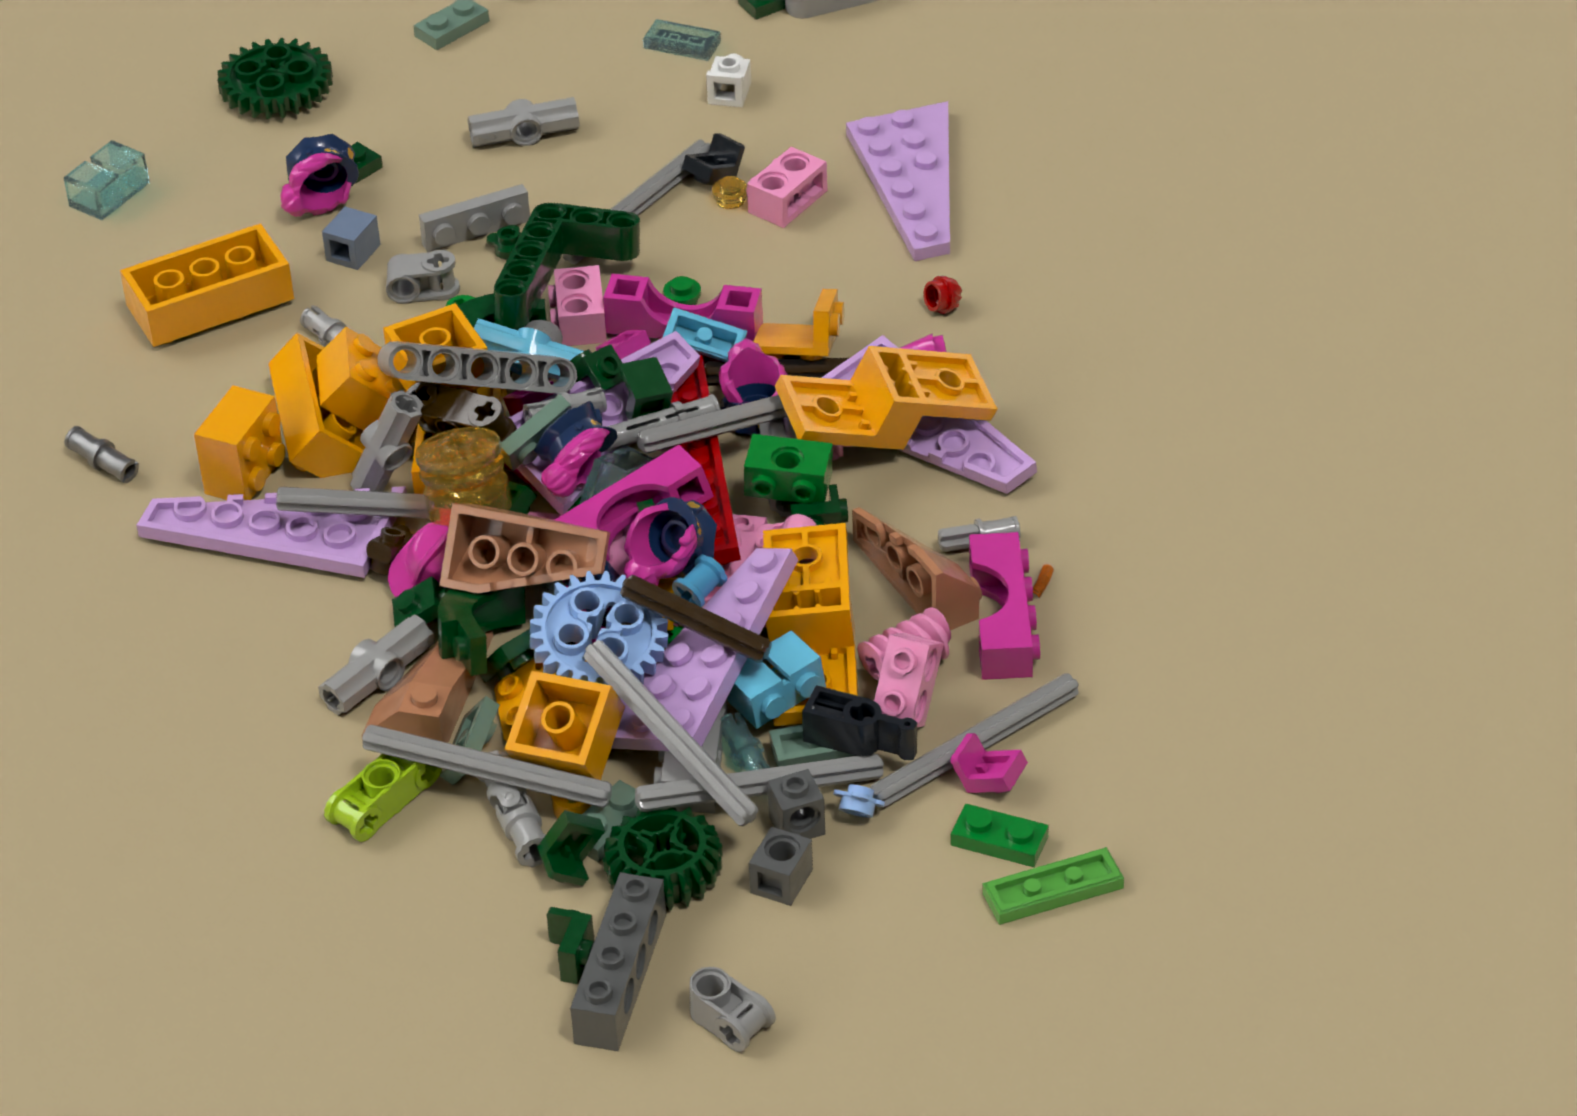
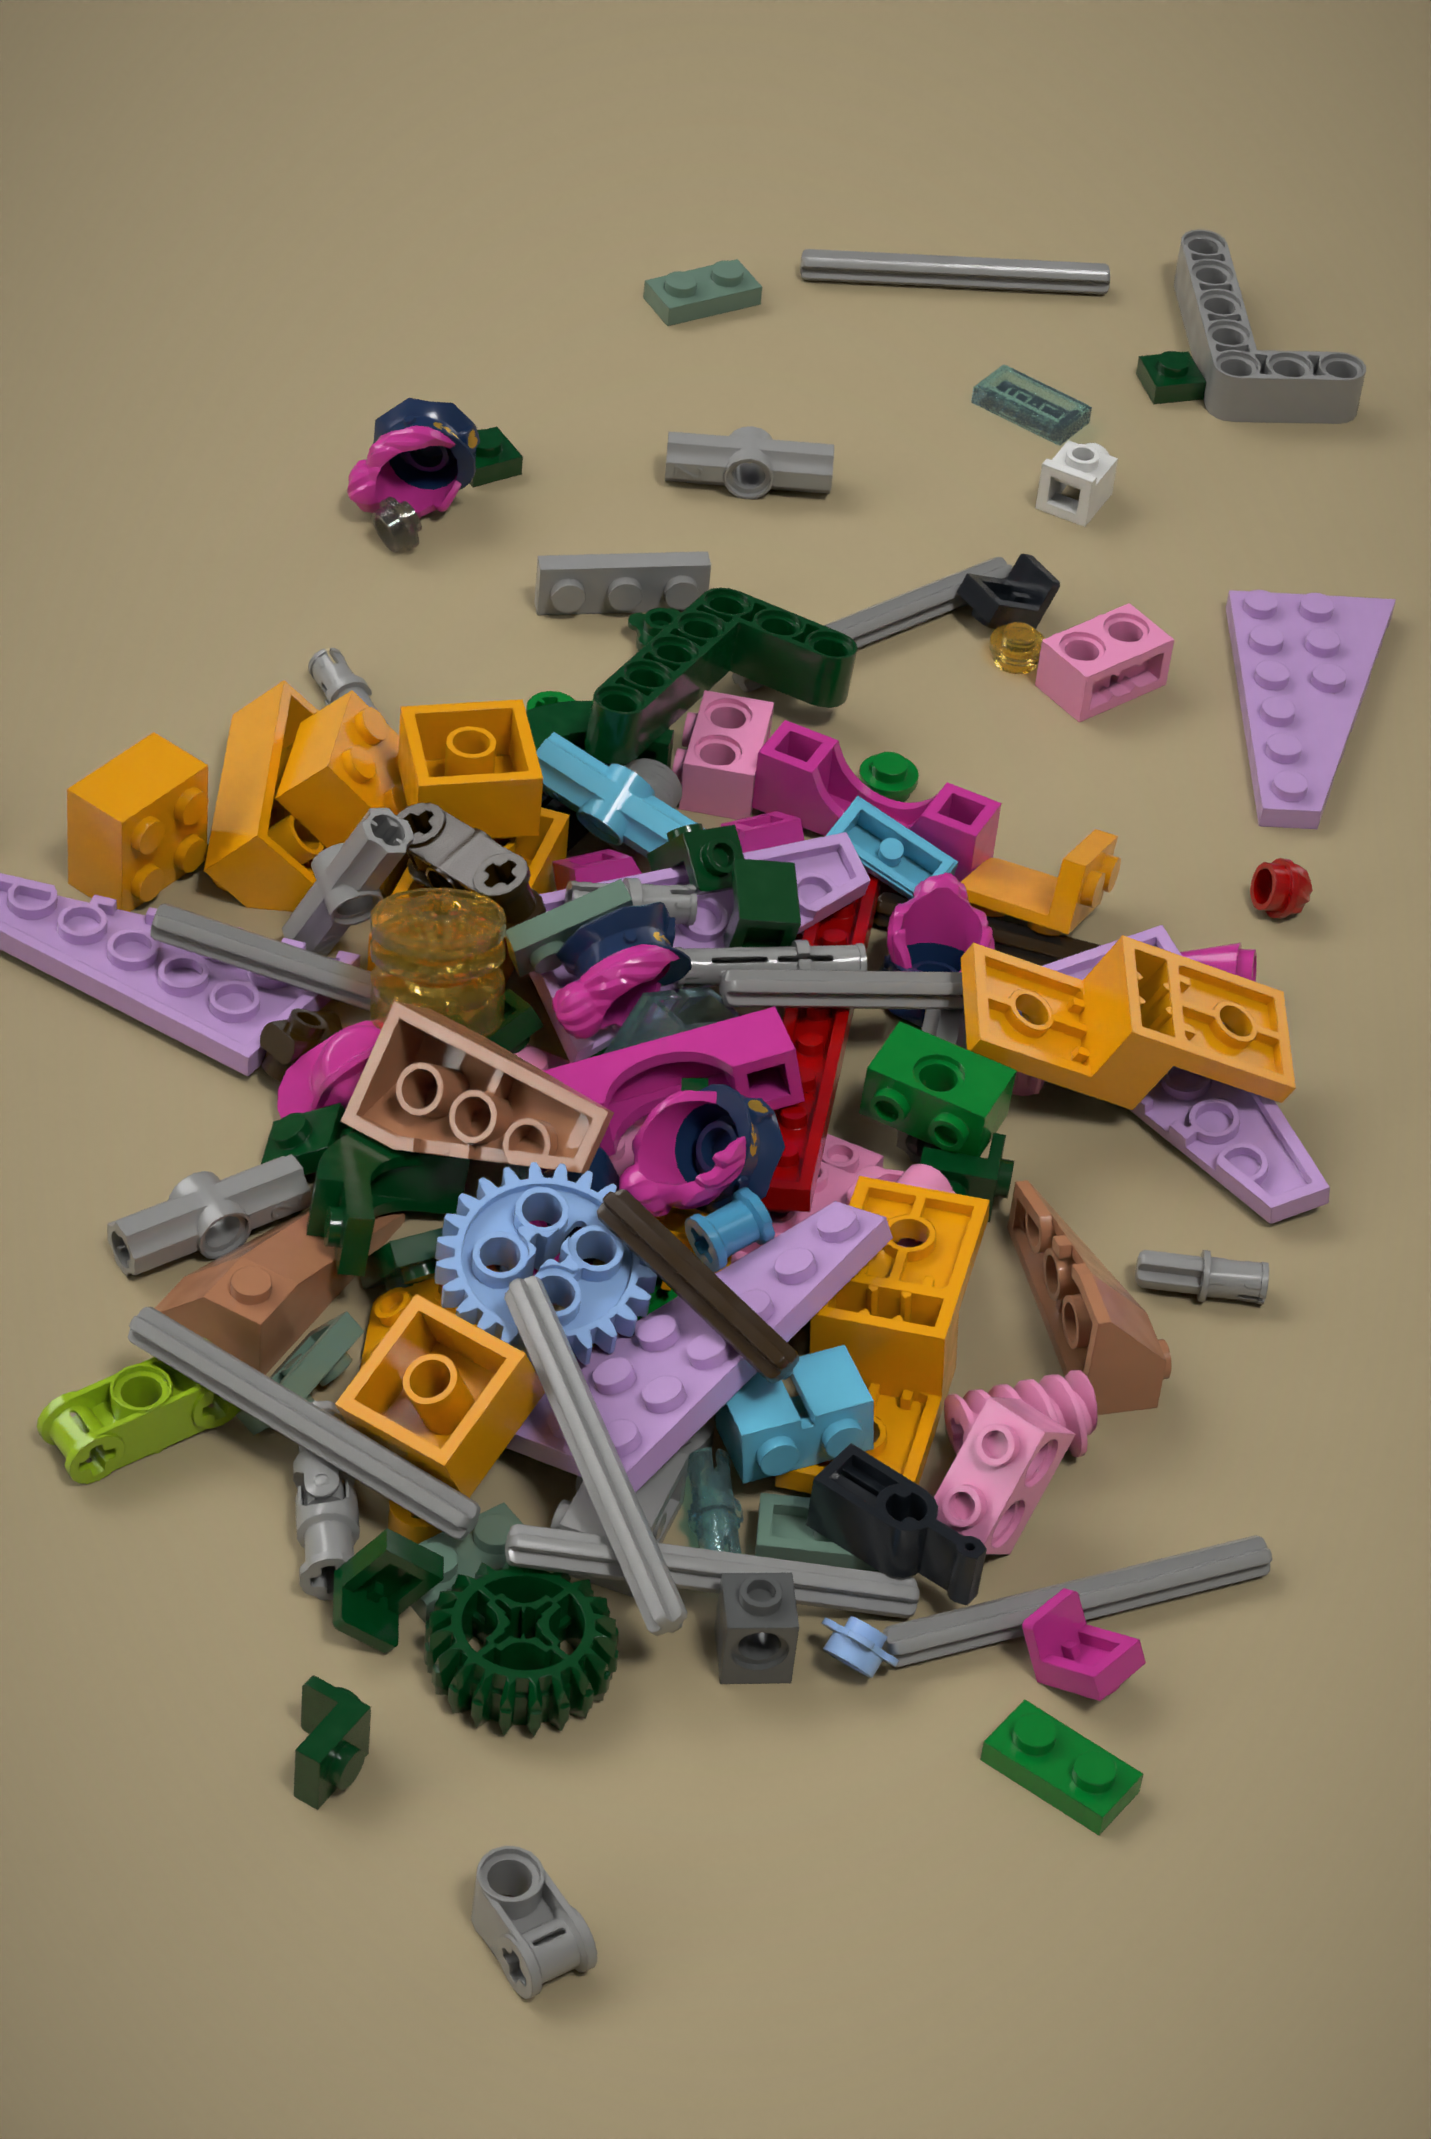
camera: 10 degrees right, 0 degrees up
(103, 190) = (99, 400): clear light blue piece -> none
(207, 284) = (191, 575): light orange brick -> none
(275, 78) = (414, 303): dark green gear -> none
(318, 217) = (397, 524): none -> clear smoke plate
(351, 238) = (430, 564): sand blue brick -> none
(419, 277) = (508, 647): light grey piece -> none
(495, 373) = (542, 821): light grey beam -> none
(618, 962) = (386, 1795): dark grey brick -> none
(781, 866) = (698, 1715): dark grey brick -> none
(1006, 636) = (1183, 1448): dark pink arch -> none
(1043, 579) = (1273, 1380): orange leg -> none
(1053, 885) = (1116, 1875): bright green tile -> none

